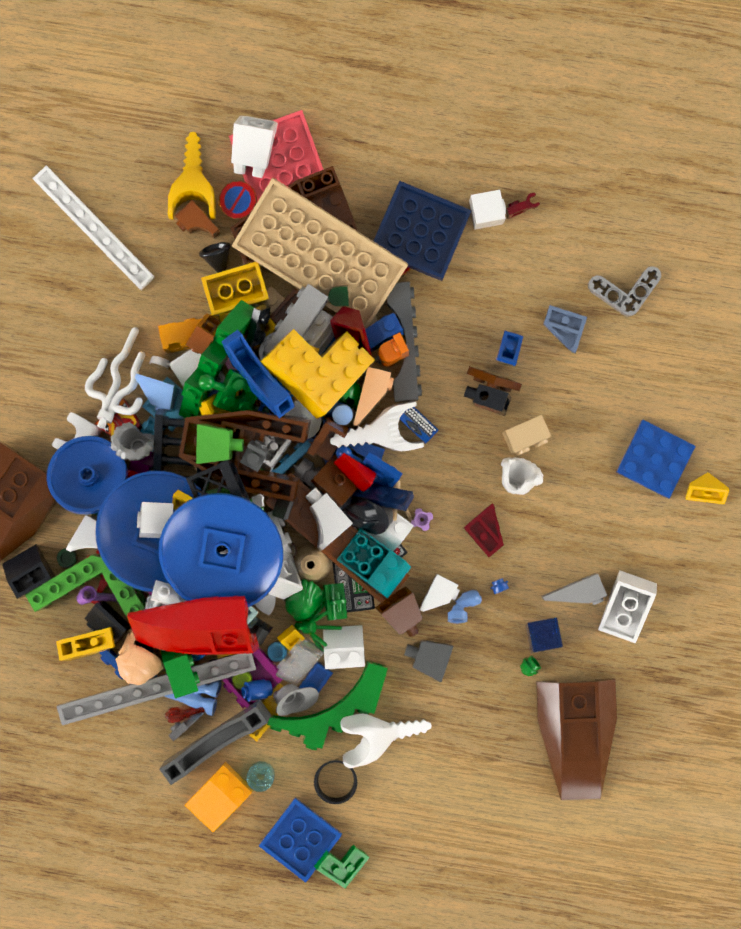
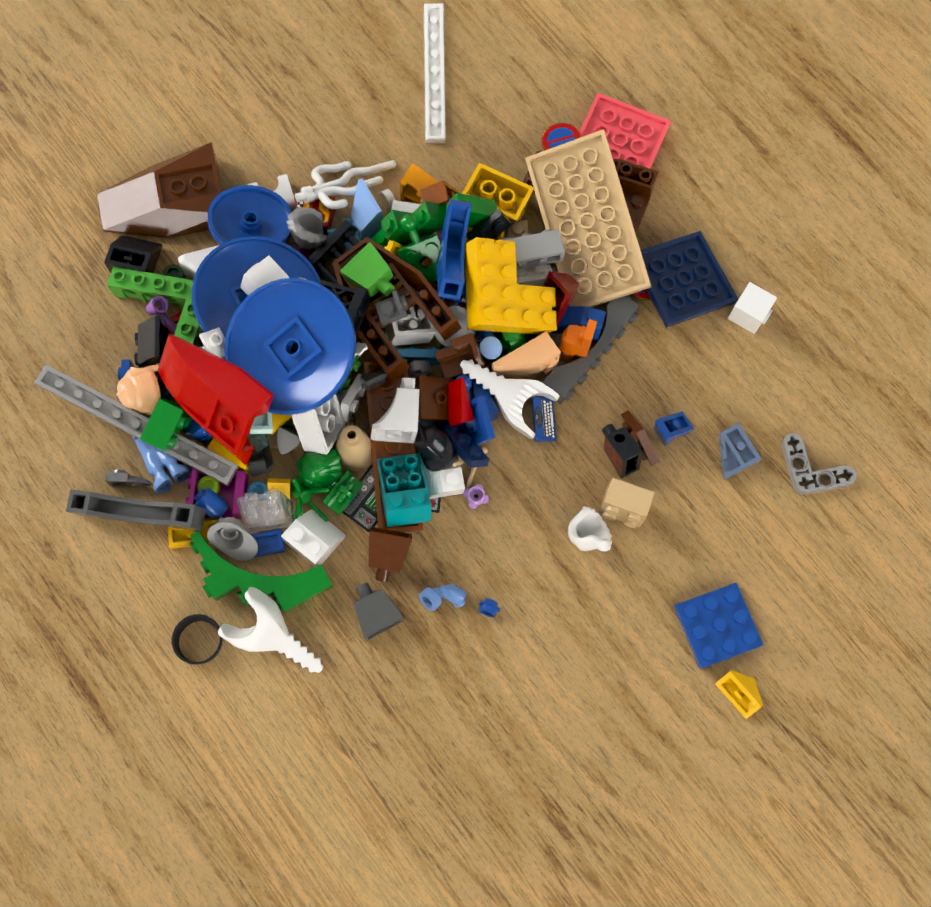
camera: 35 degrees right, 15 degrees down
(85, 644) = (116, 343): yellow slope -> none
(176, 715) = (129, 465): clear red plate -> none
(191, 182) = (535, 101): yellow animal -> none
(193, 219) = (514, 126): dark orange arch -> none
(216, 255) = (506, 162): black hat -> none
(219, 797) = (94, 562): light orange slope -> none
(252, 144) = (609, 107): white hips -> none
(261, 768) = (147, 585): clear light blue wheel -> none
(300, 839) = (120, 661): blue plate -> none
(339, 296) = (573, 264): dark green tile -> none
(342, 870) = (127, 720): plate -> none
(439, 593) = (433, 566): white slope -> none
(486, 531) = (520, 552): dark red wing -> none
(516, 207) = (780, 331): dark red plate -> none
(530, 666) = (451, 698): green plate -> none
(544, 635) = (487, 681): clear blue head -> none
(577, 733) = (438, 797): reddish brown wedge -> none
(582, 591) = (555, 676): light grey slope -> none
(628, 606) = (582, 726): white slope -> none

